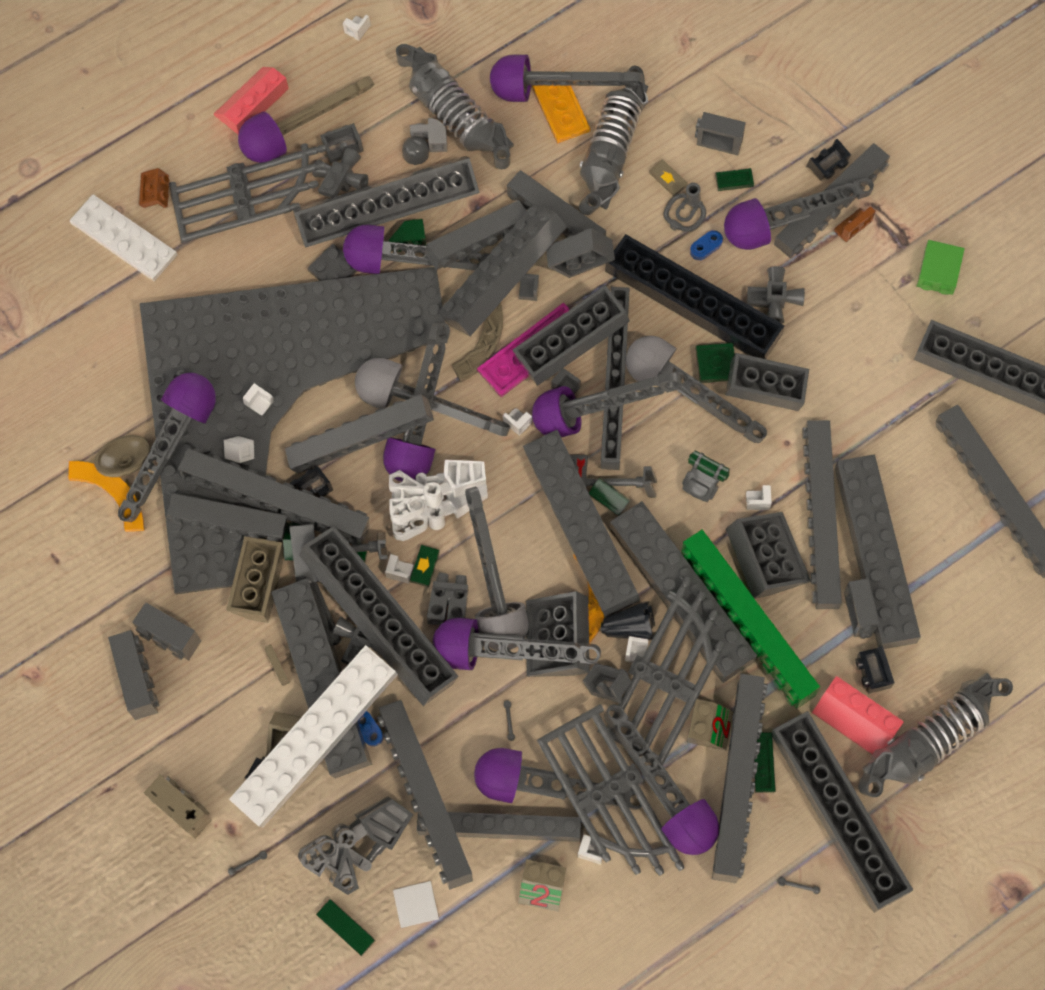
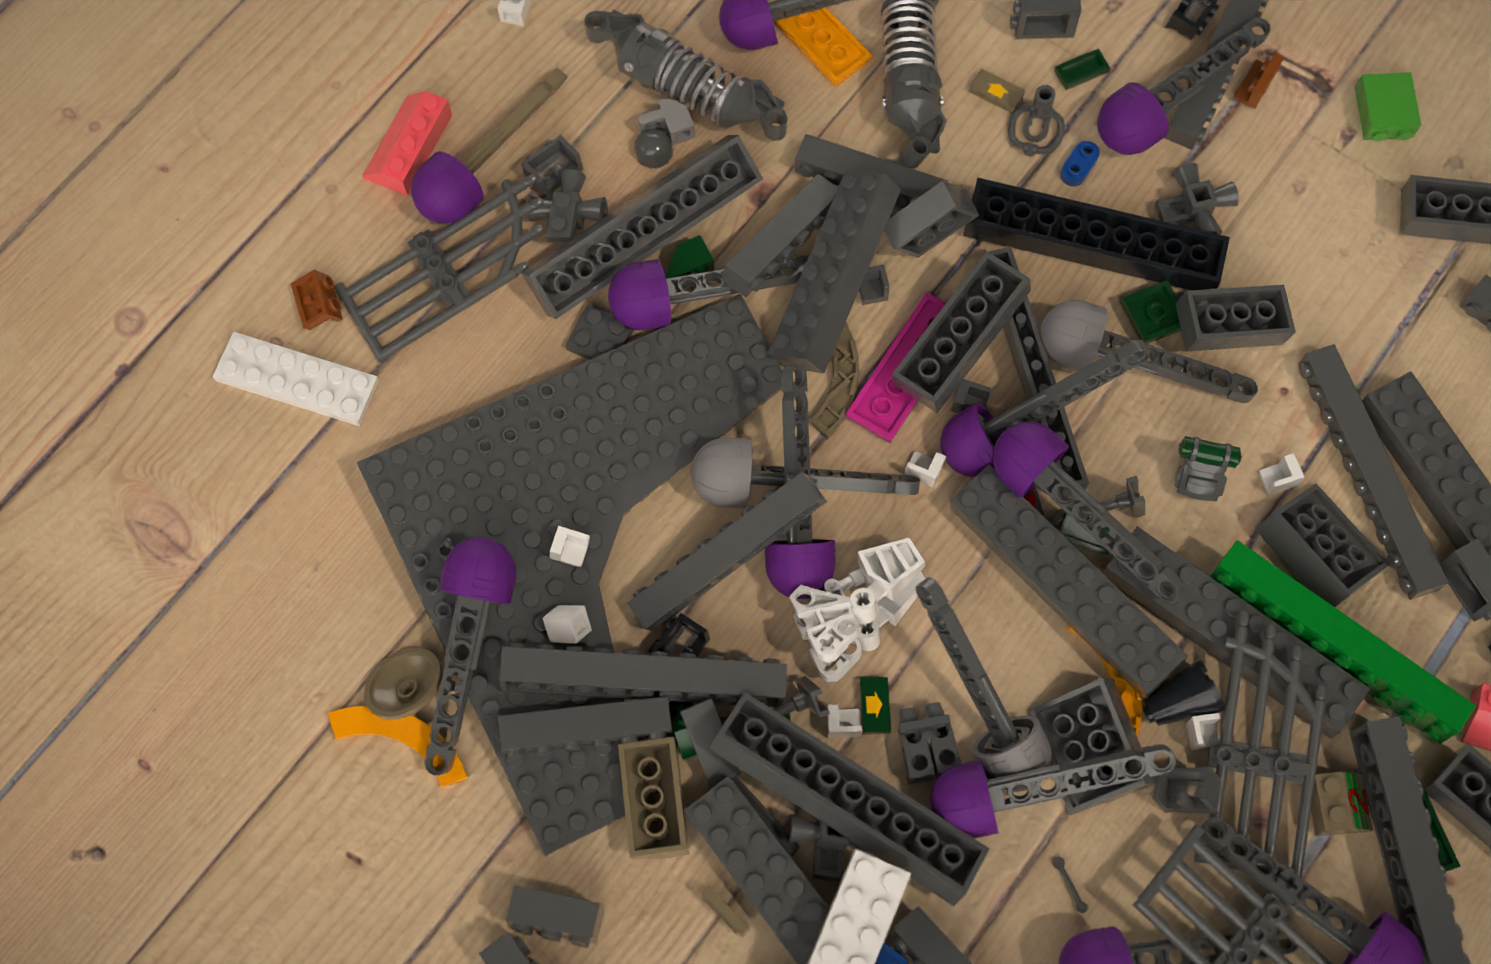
camera: 20 degrees left, 0 degrees up
(581, 433) = (1029, 457): none -> piece

